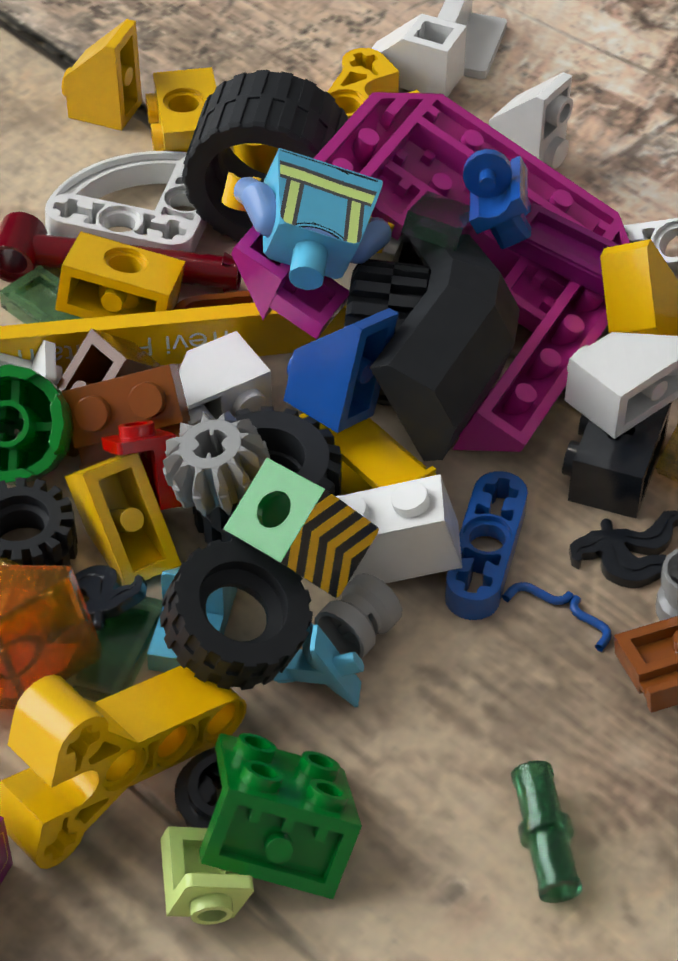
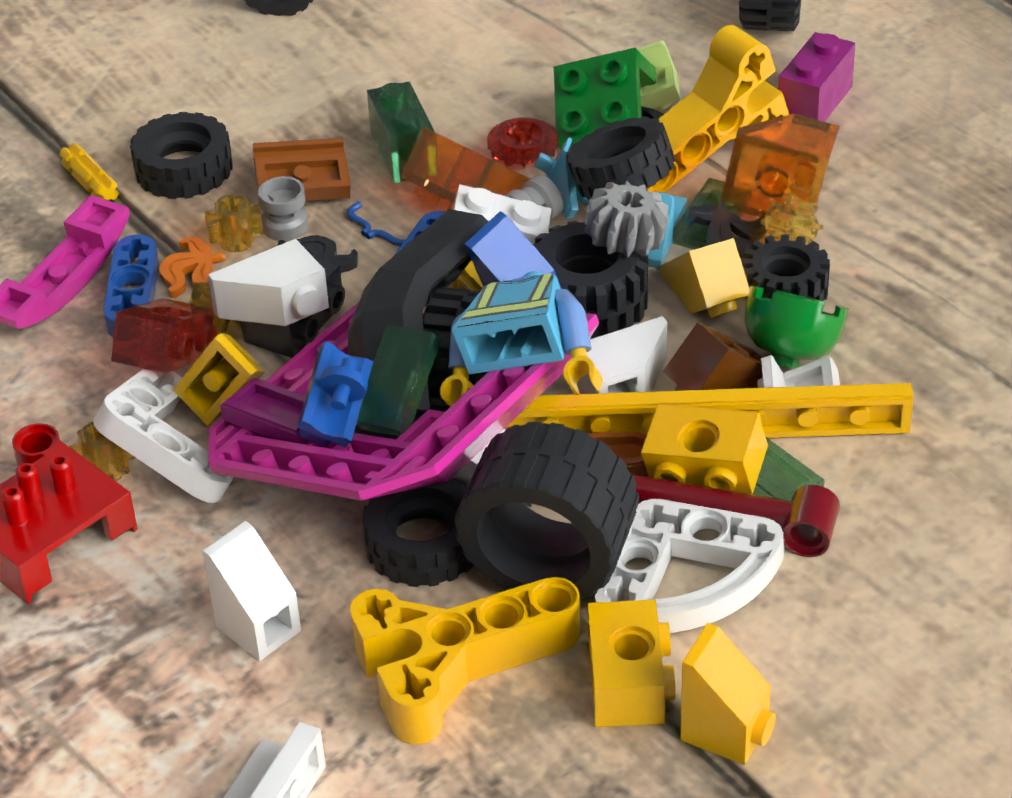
camera: 170 degrees left, 5 degrees down
(135, 397) = (679, 307): dark orange plate -> none
(151, 446) = (683, 270): red bracket -> none
(302, 527) = (551, 162): piece -> none
(376, 740) = (511, 140): none -> clear red gear
(427, 54) = (352, 715): white slope -> none
(451, 664) = (441, 165): none -> clear orange slope
(546, 832) = (436, 96): clear green pin -> none
(574, 730) = (396, 124): none -> clear green brick

